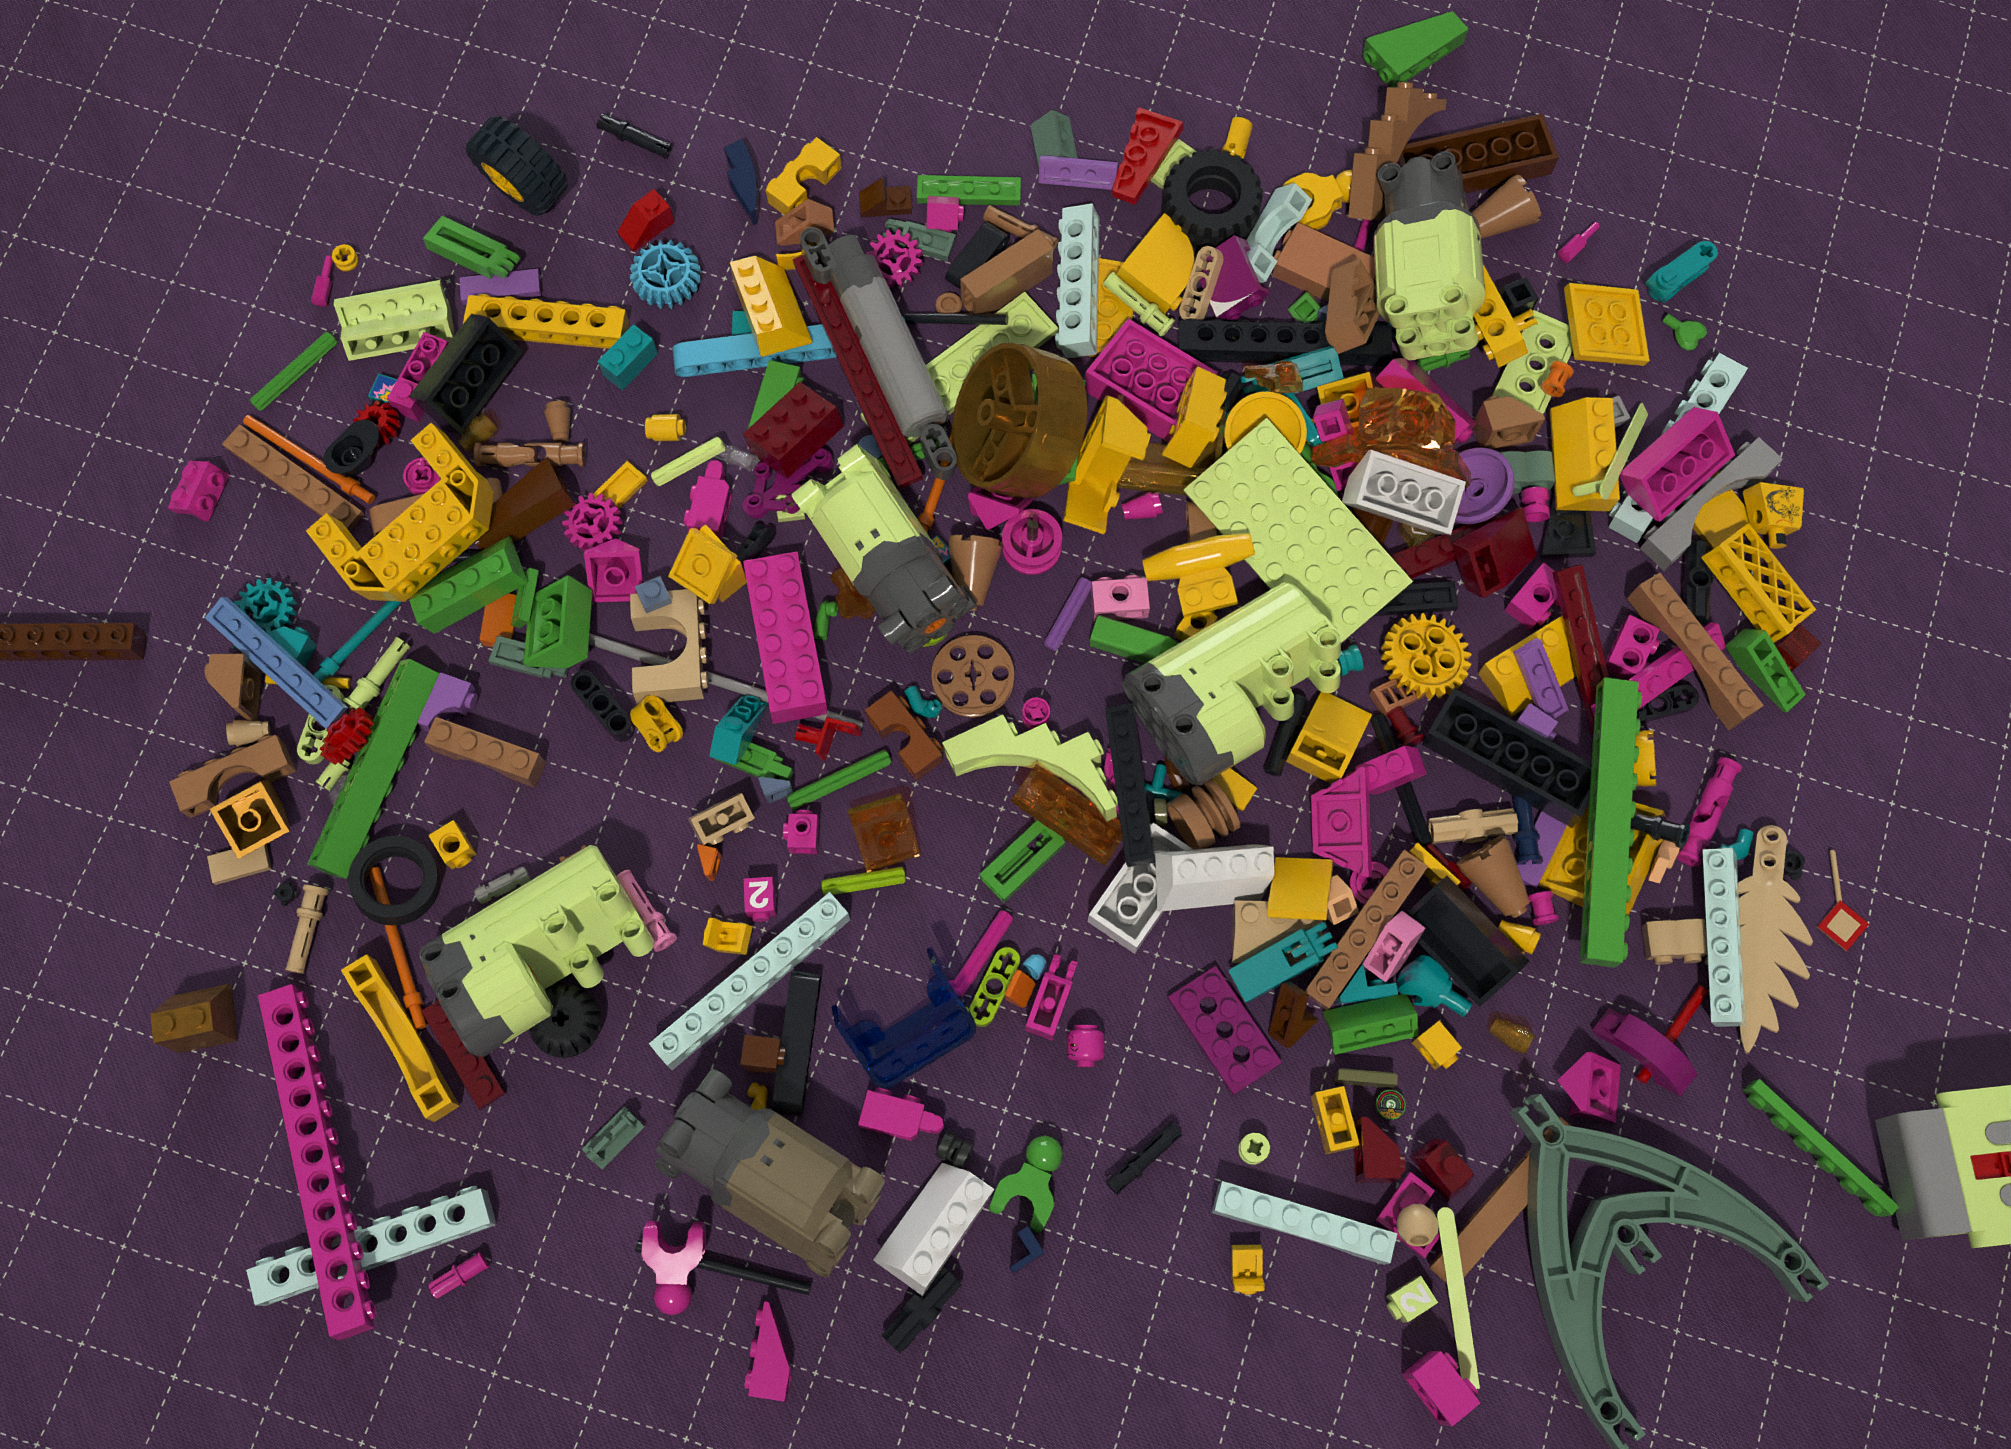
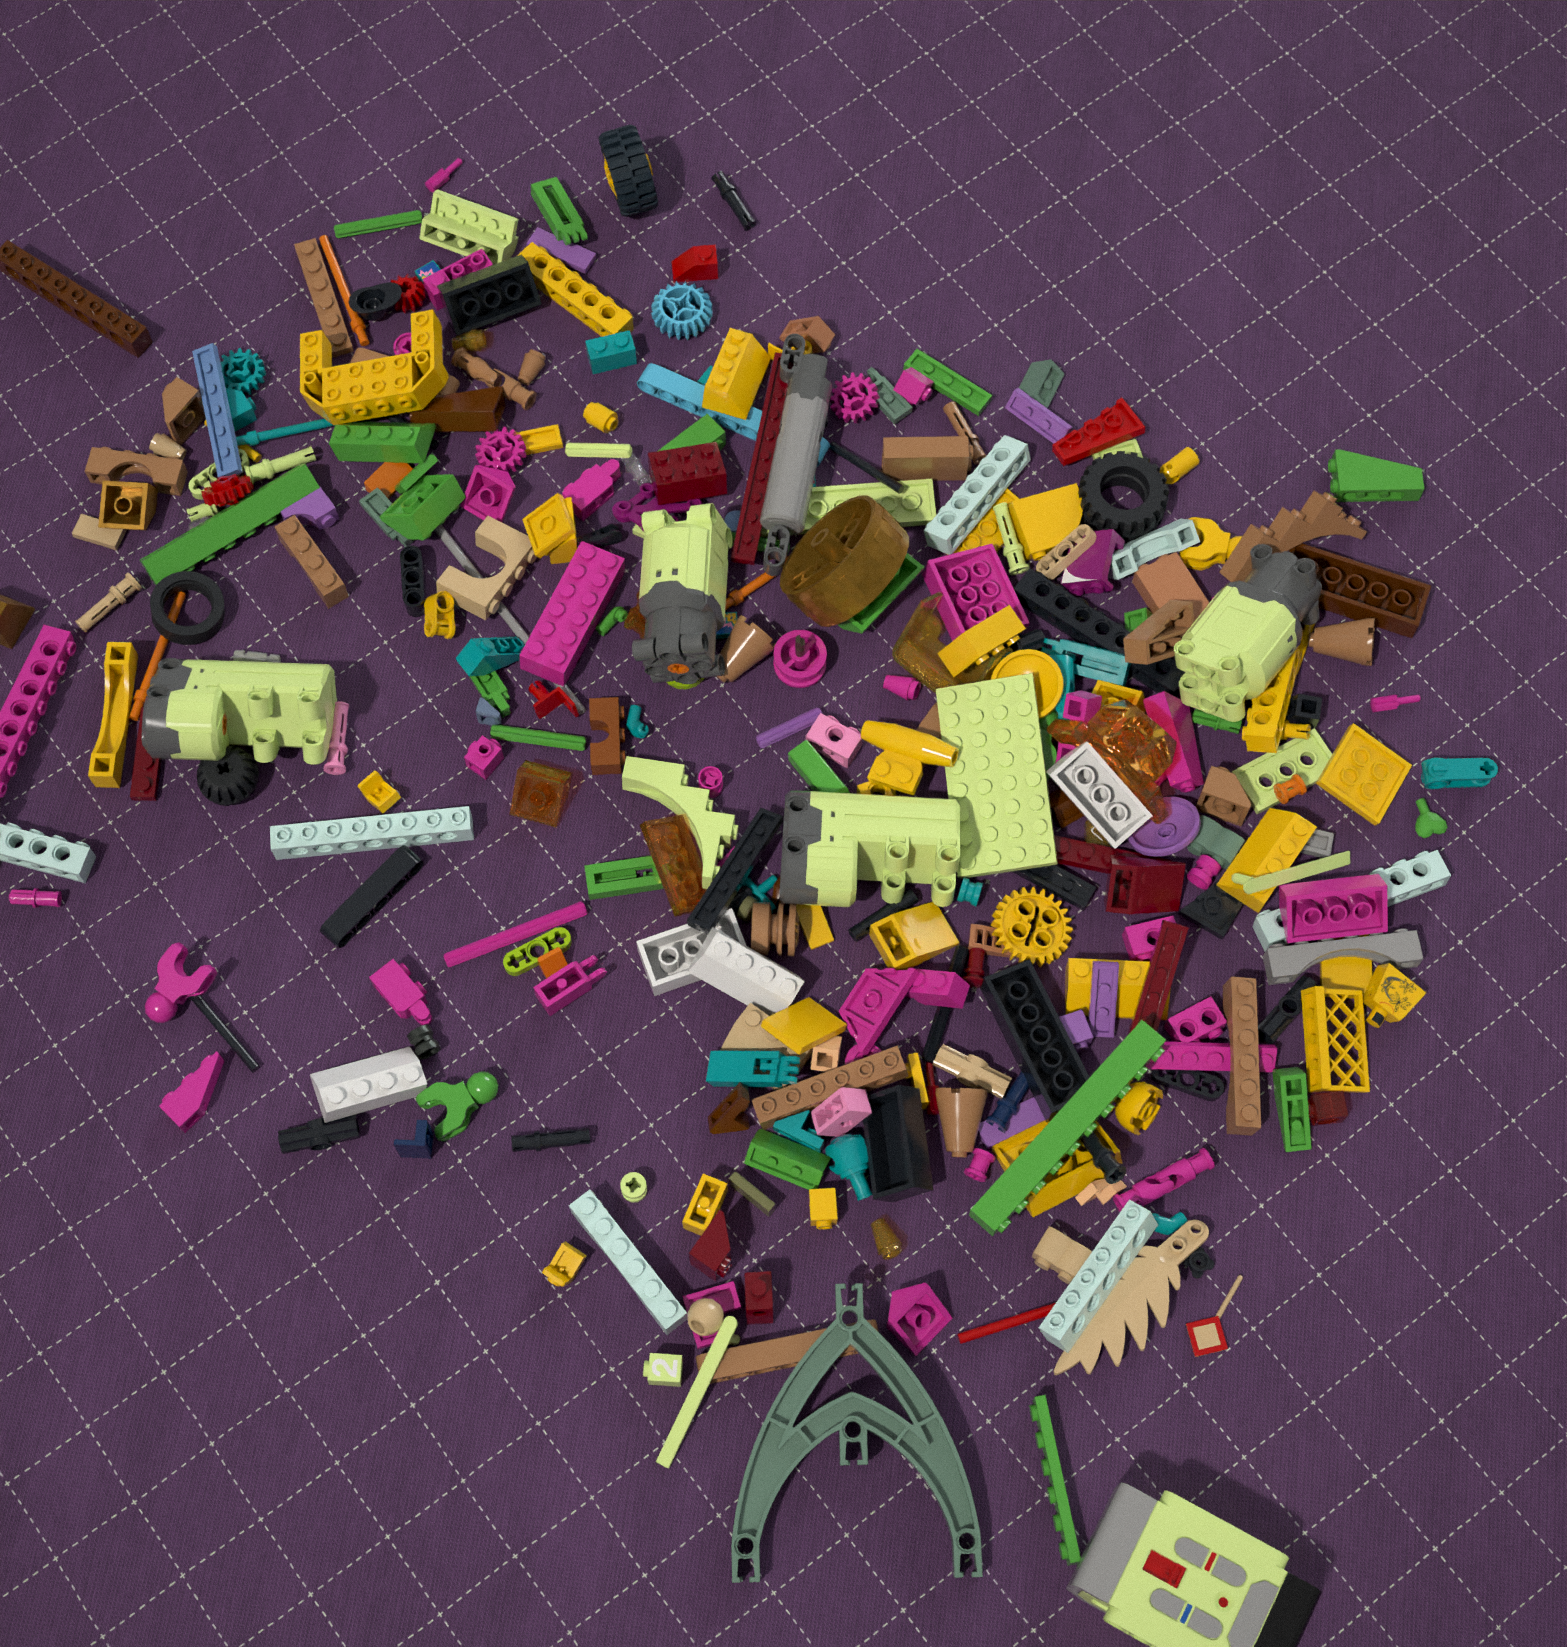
camera: 35 degrees right, 5 degrees down
(198, 490) = (256, 266): dark pink bracket -> none
(286, 893) = (113, 572): black piece -> none
(337, 256) = (474, 171): yellow bush -> none
(445, 837) = (243, 601): yellow brick -> none
(613, 1138) = (202, 877): sand green hinge -> none
(653, 594) = (502, 525): sand blue plate -> none
(710, 860) = (405, 734): orange slope -> none
(720, 819) = (434, 709): tan brick -> none
(743, 178) = (788, 277): dark blue slope -> none
(759, 1094) = (311, 923): yellow arm -> none
(760, 898) = (421, 781): dark pink brick -> none
(762, 1054) = (338, 883): reddish brown slope -> none
(769, 1173) = (280, 963): dark tan piece -> none
(814, 162) = (847, 294): yellow arch -> none
(863, 881) = (502, 818): lime axle -> none
(886, 201) = (878, 352): reddish brown slope -> none
(914, 1040) = (451, 949): clear blue windscreen -> none
(948, 303) = (871, 454): medium nougat tile -> none
(983, 683) = (684, 717): medium nougat wedge -> none
(984, 246) = (925, 426): black beam -> none
(995, 507) = (789, 617): dark pink slope -> none
(1035, 966) = (576, 954): medium azure hinge -> none
(1085, 1045) = (568, 1033): dark pink head -> none
(1100, 463) = (891, 632): yellow windscreen -> none
(1218, 1049) = (690, 1104): magenta plate -> none
(1278, 378) = (1067, 652): clear orange wing -> none
(1390, 1105) = (757, 1226): tile -> none
(1441, 1387) = (635, 1441): dark pink brick -> none
(1522, 936) = (946, 1174): yellow cone -> none
(1648, 1046) = (978, 1318): magenta arch -> none

